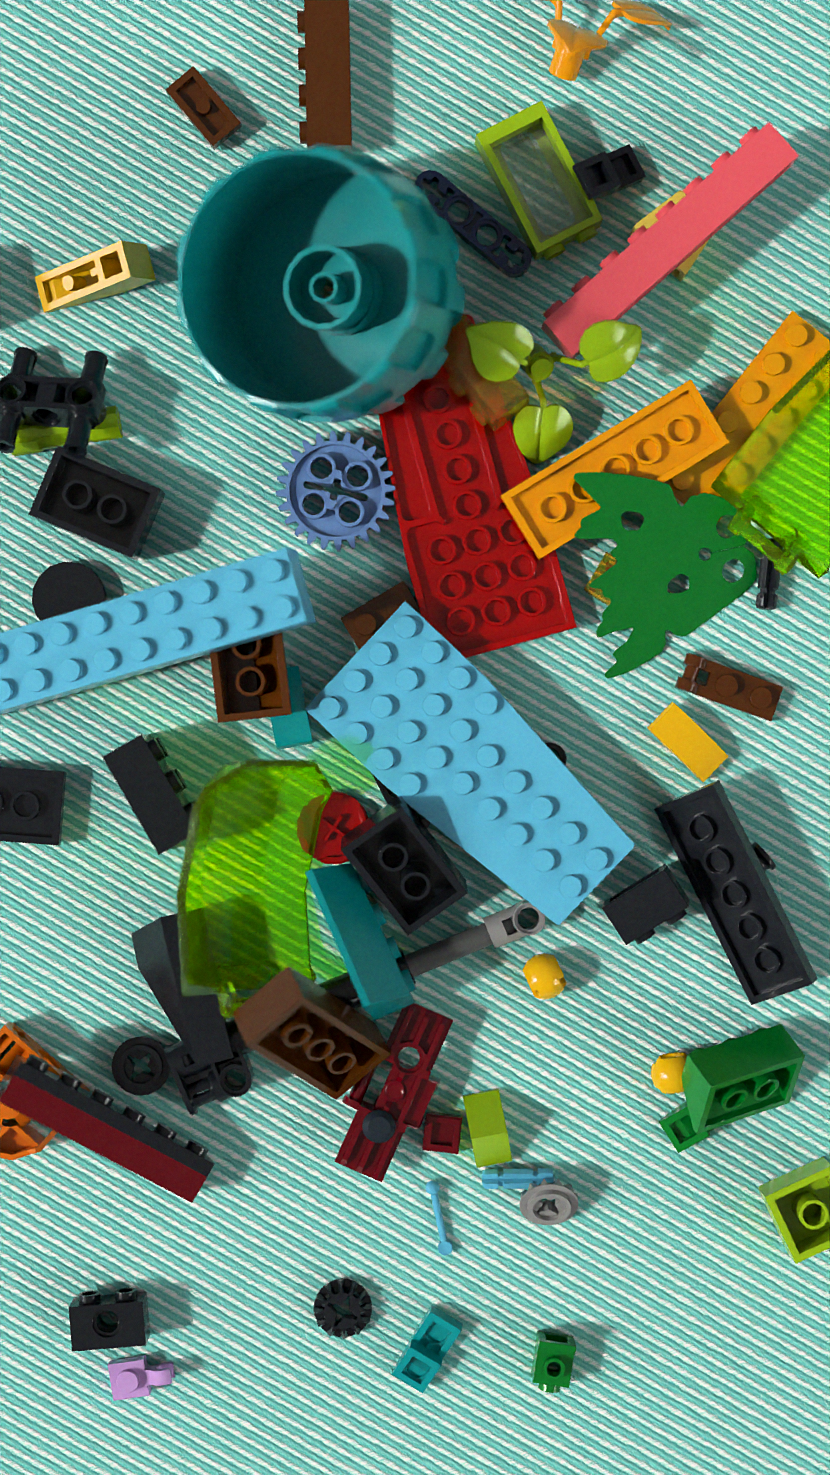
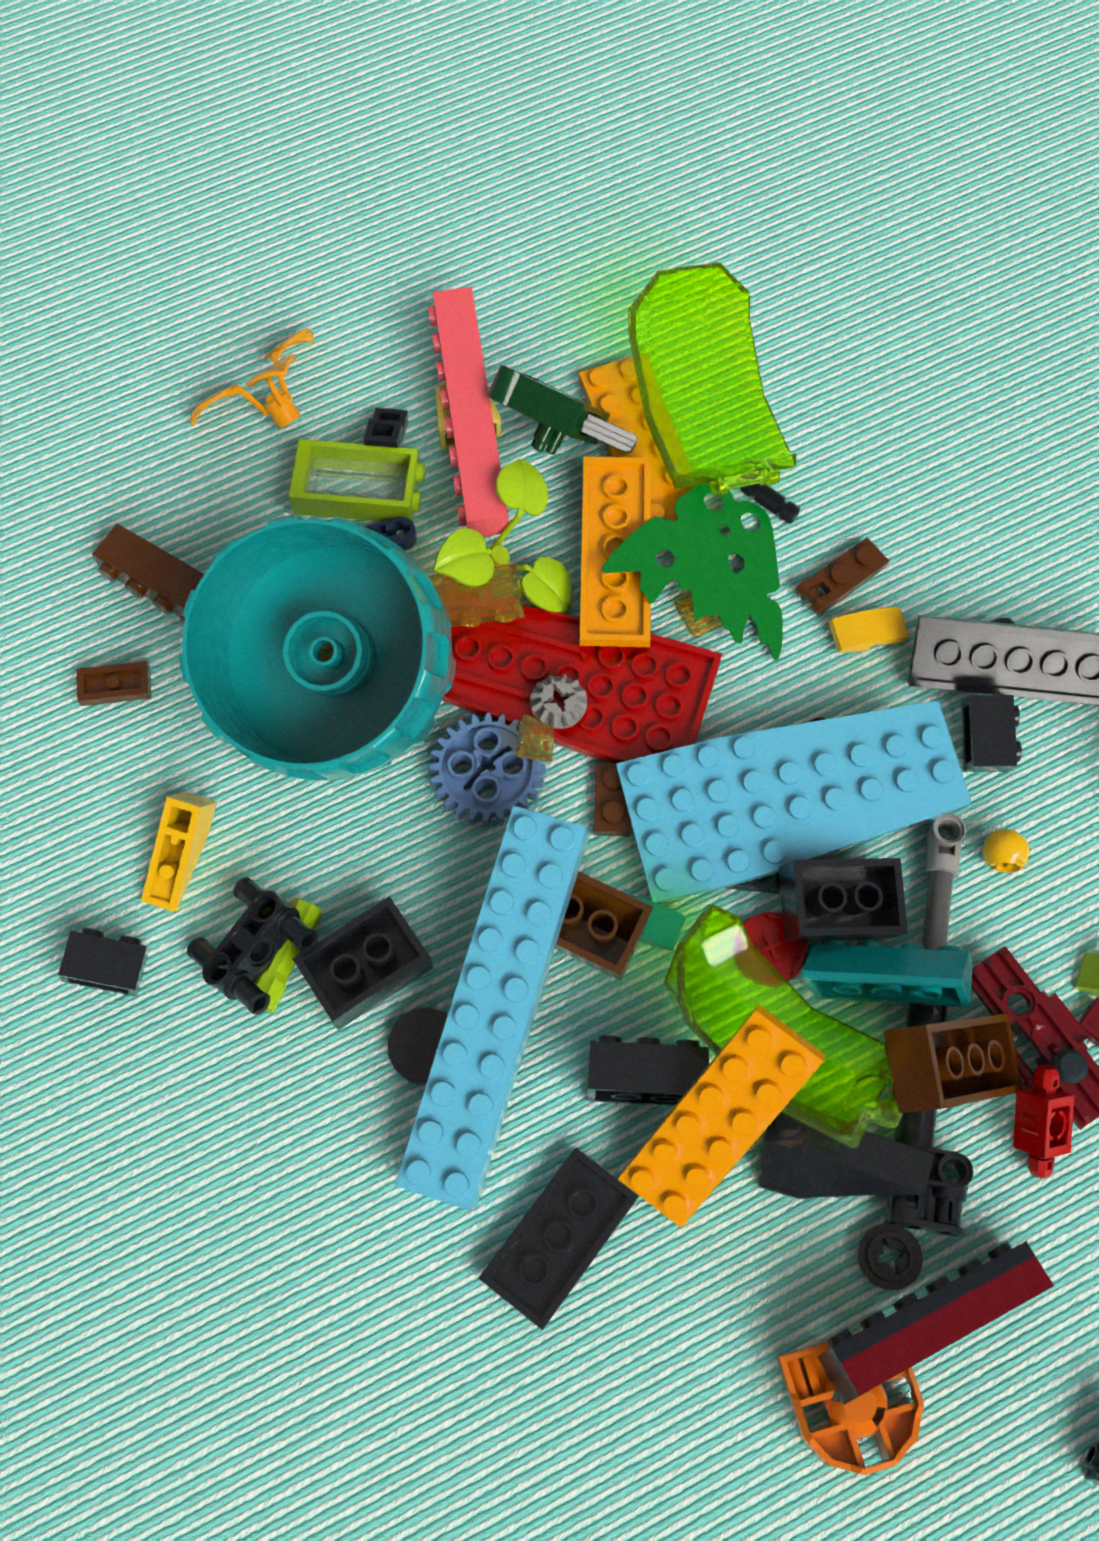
camera: 55 degrees left, 20 degrees down
(147, 875) = (721, 1115): none -> light orange plate
(320, 1128) = (1043, 1121): none -> red piece
(383, 517) = (534, 739): none -> clear yellow slope
(435, 531) = (551, 714): none -> light grey gear
(719, 321) = (556, 413): none -> dark green piece

